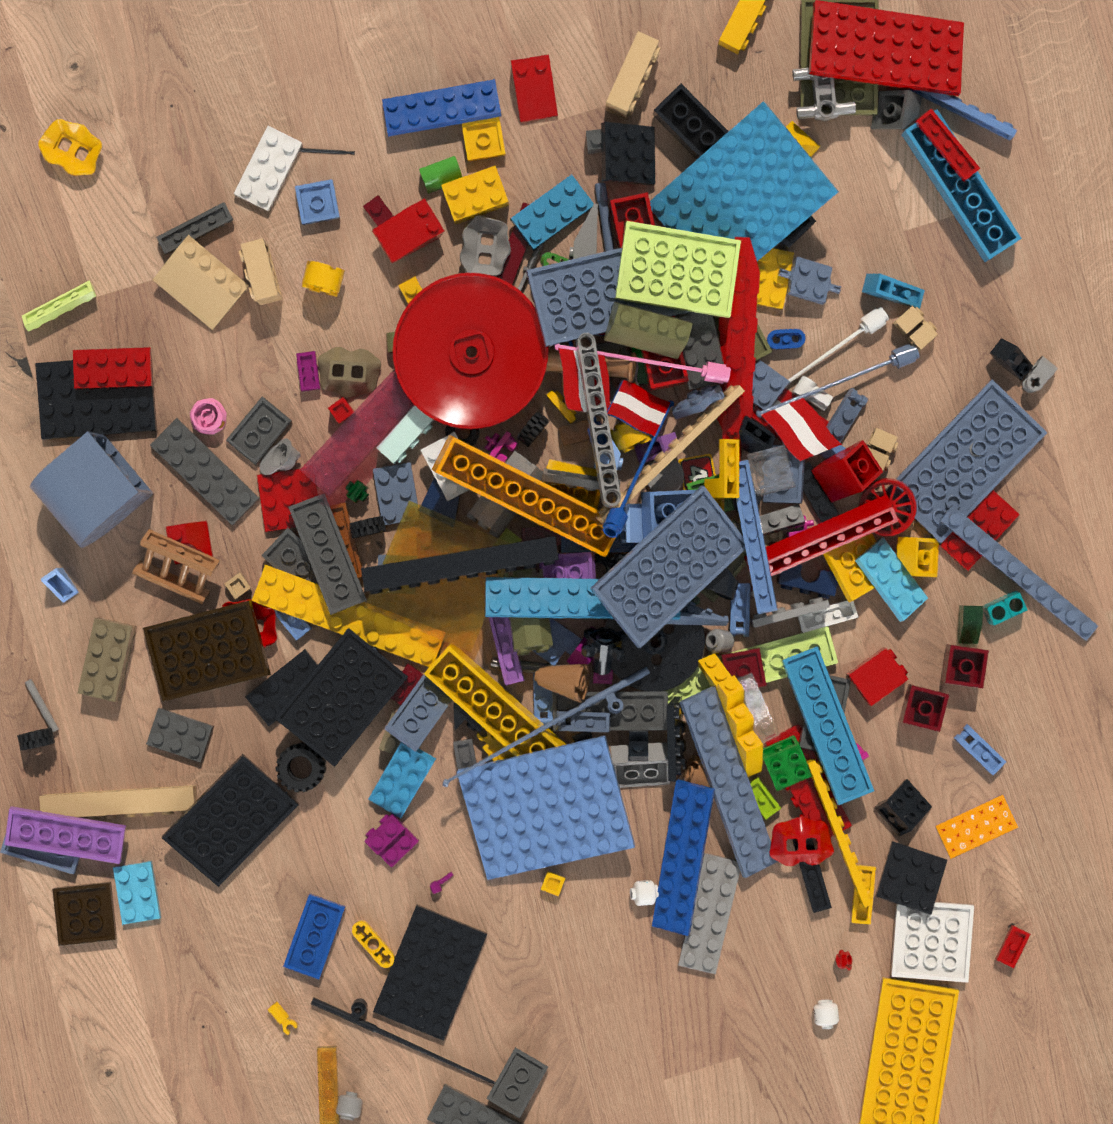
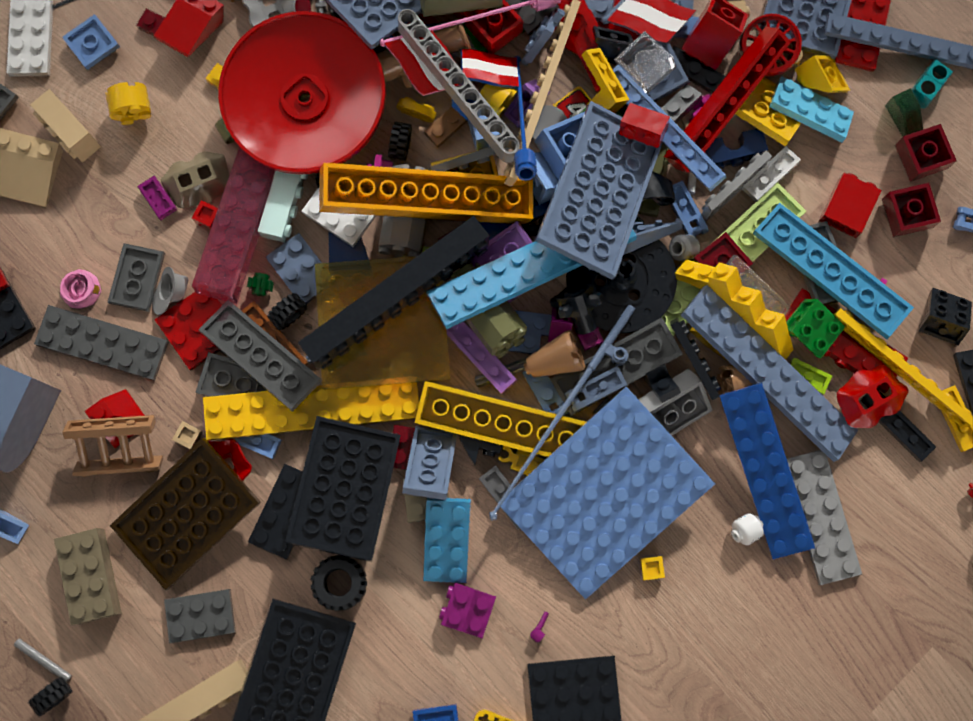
camera: 30 degrees left, 10 degrees down
(734, 531) = (644, 125): none -> red brick

